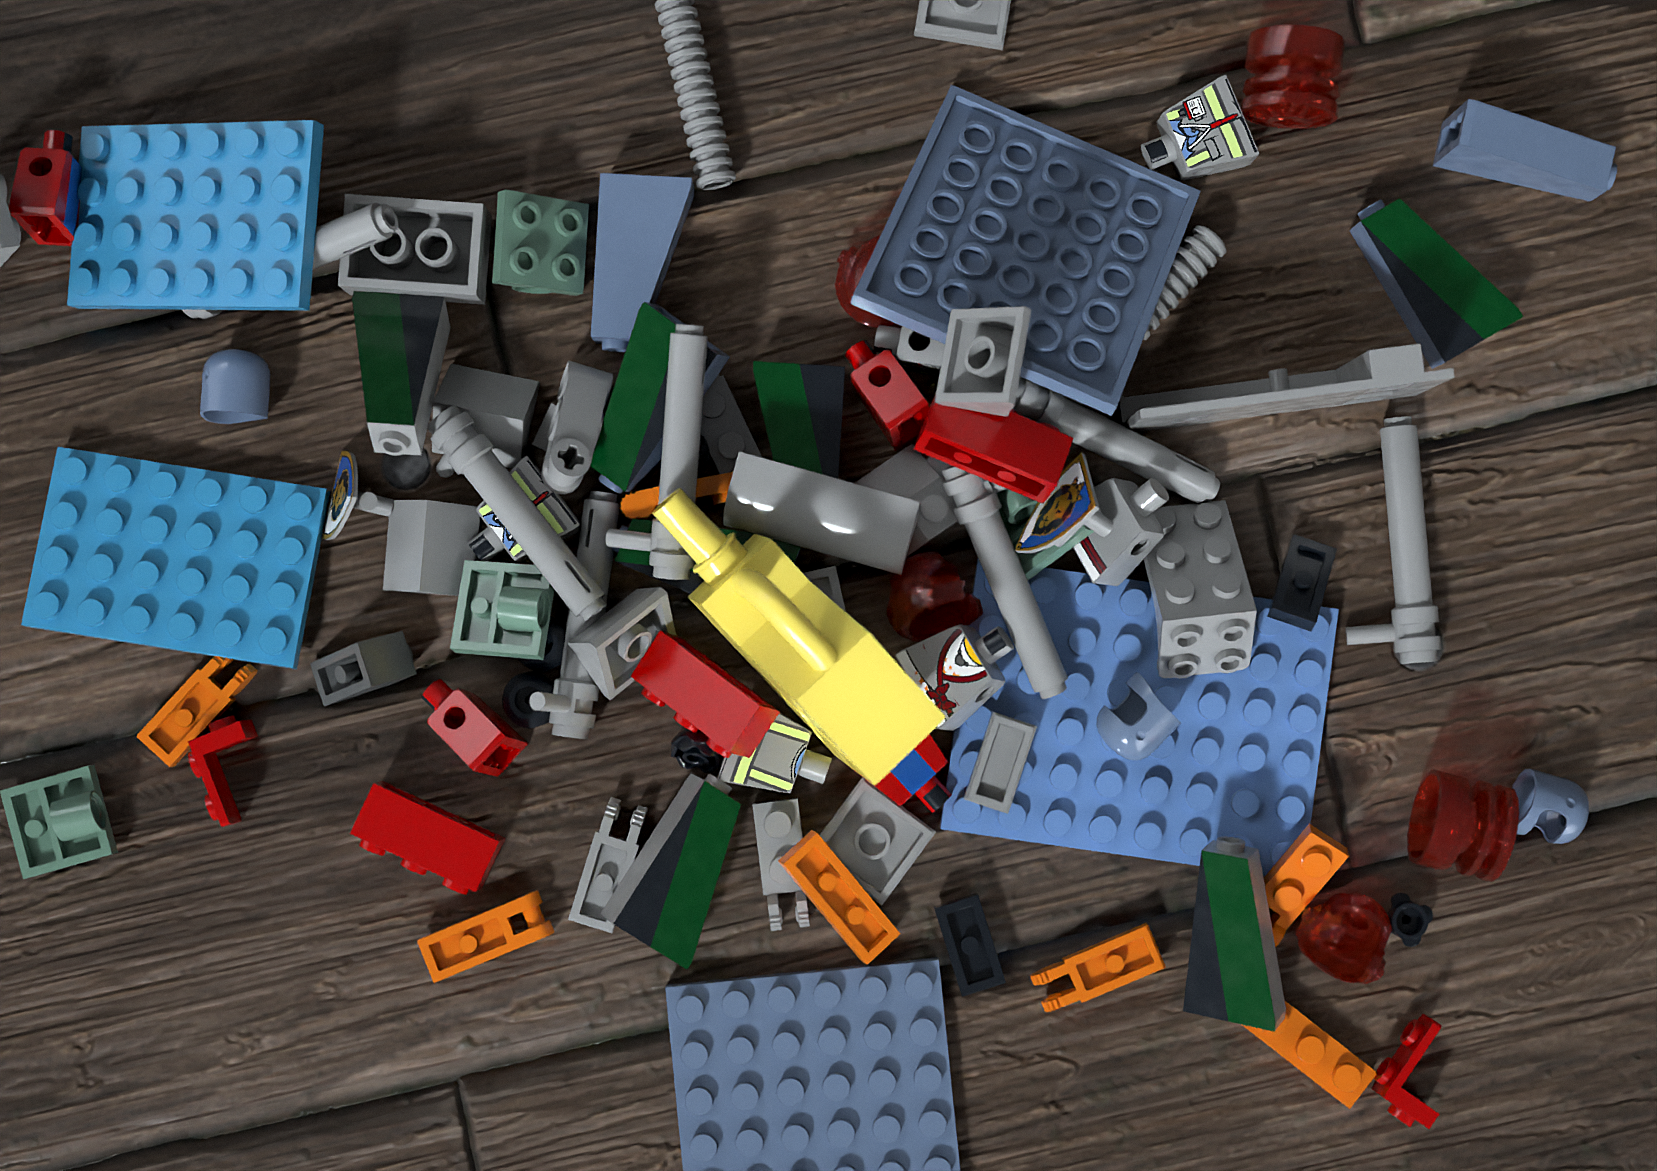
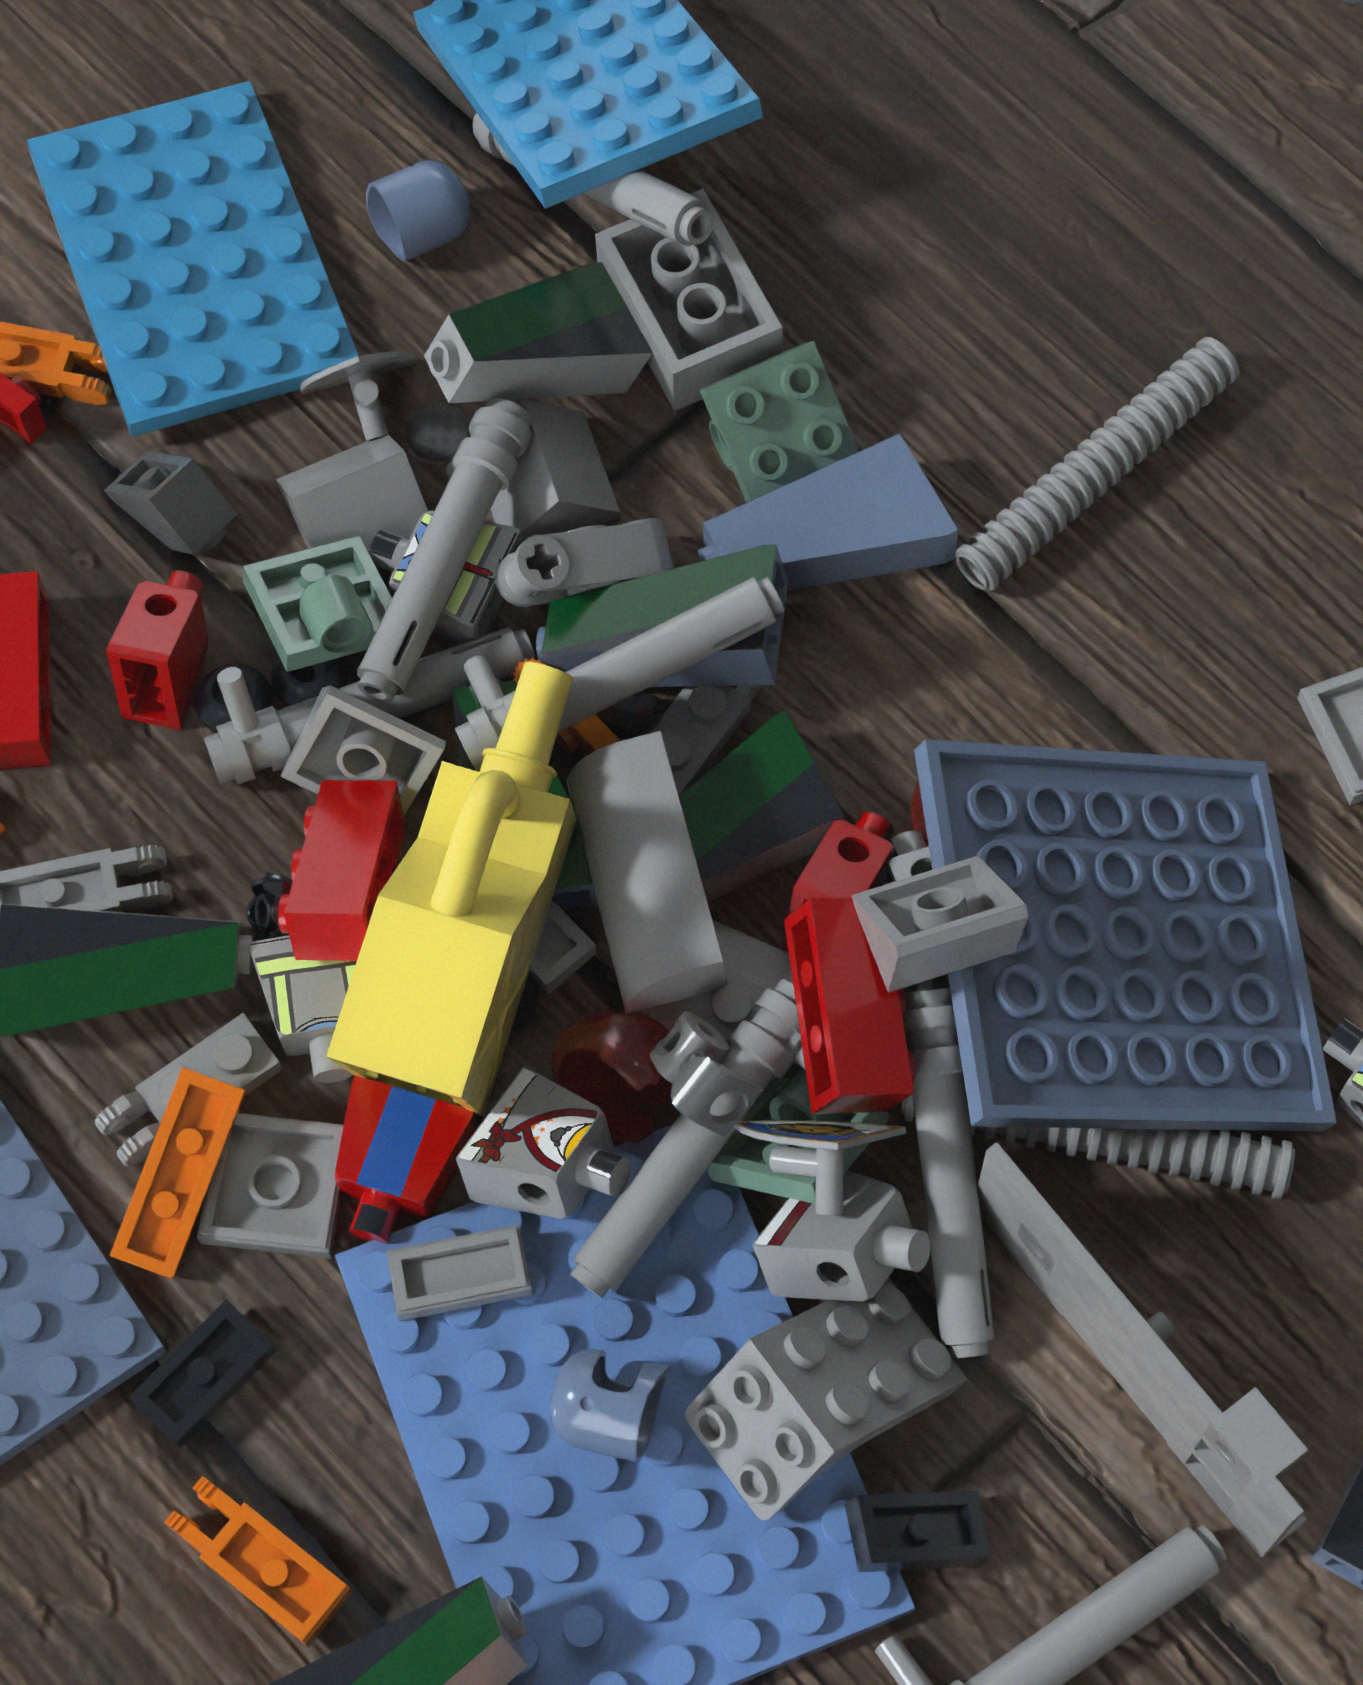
camera: 65 degrees right, 20 degrees down
(962, 557) = (690, 1062): none -> dark grey leg

